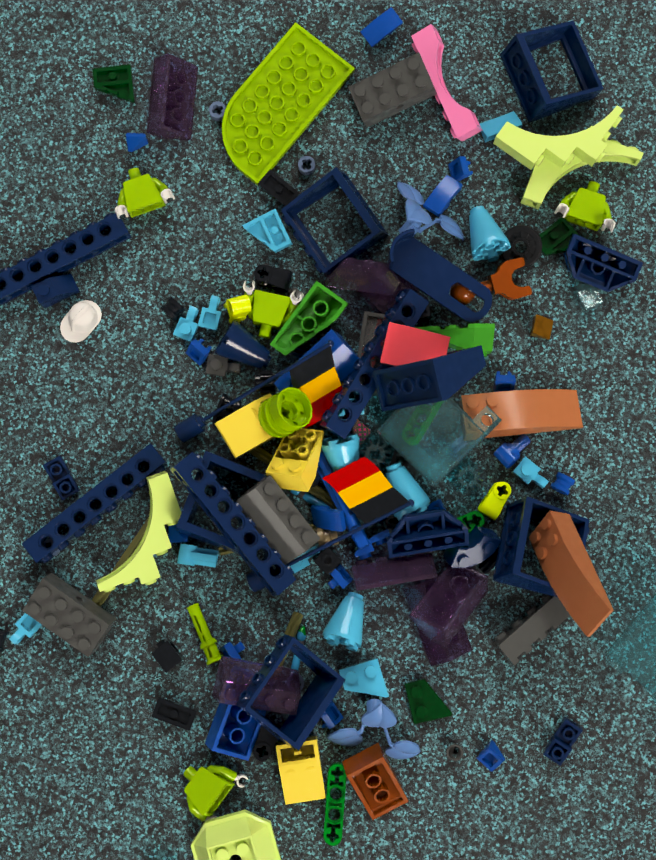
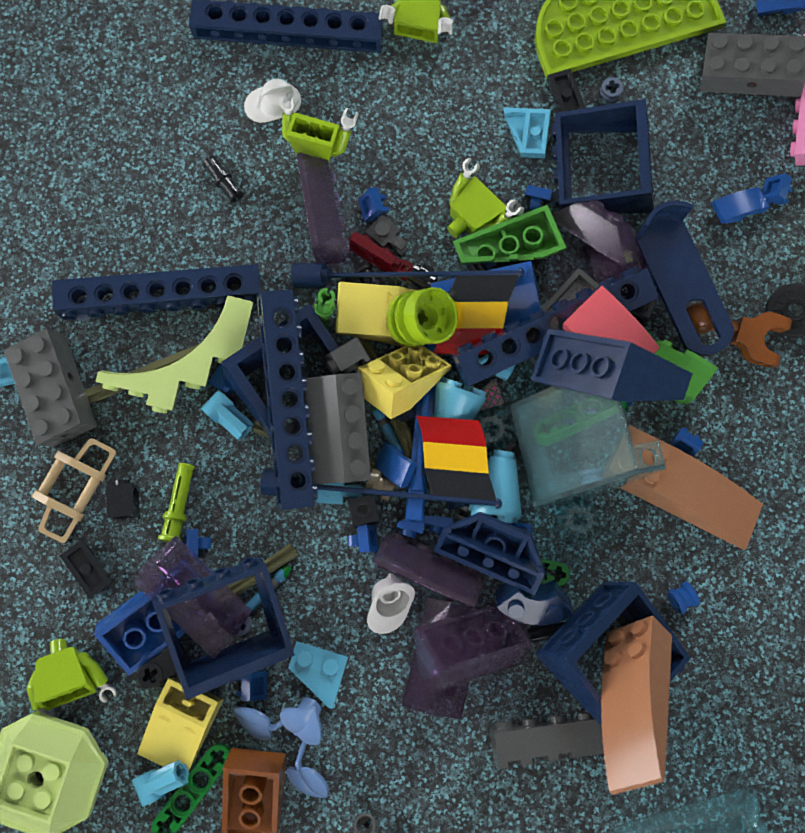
camera: 30 degrees right, 5 degrees down
(55, 289) = (266, 53): dark blue slope -> none
(61, 477) = (143, 244): dark blue slope -> none
(84, 398) = (222, 179): none -> black pin
(131, 332) = (314, 135): none -> lime torso
(142, 682) = (77, 511): none -> tan bar
(168, 378) = (321, 209): none -> clear purple slope
(172, 309) = (374, 145): black wheel -> none
(187, 327) = (377, 173): medium azure plate -> none
(209, 316) = (410, 178): medium azure plate -> none
(217, 445) = (325, 306): none -> bright green pin
(228, 384) = (377, 256): none -> dark red hinge
(238, 308) = (443, 184): neon yellow piece -> none
(243, 347) = (422, 226): dark blue cone -> none
(252, 470) = (346, 356): none -> dark grey brick
(275, 278) = (502, 178): black piece -> none
(304, 274) = (537, 195): none -> blue tile
(310, 813) = (156, 783): none -> medium azure piece
(346, 623) = (339, 594): medium azure cone -> none
(382, 608) = (389, 604): none -> white piece
(417, 215) = (706, 189): medium blue plant -> none
(424, 702) = (368, 743): dark green wing -> none
(486, 237) = (763, 276): medium azure cone -> none
(493, 503) = (591, 568): neon yellow piece -> none
(509, 453) = (643, 524): blue axle -> none
(529, 471) = (651, 559): medium azure plate -> none
(541, 327) = (765, 411): pearl gold slope -> none

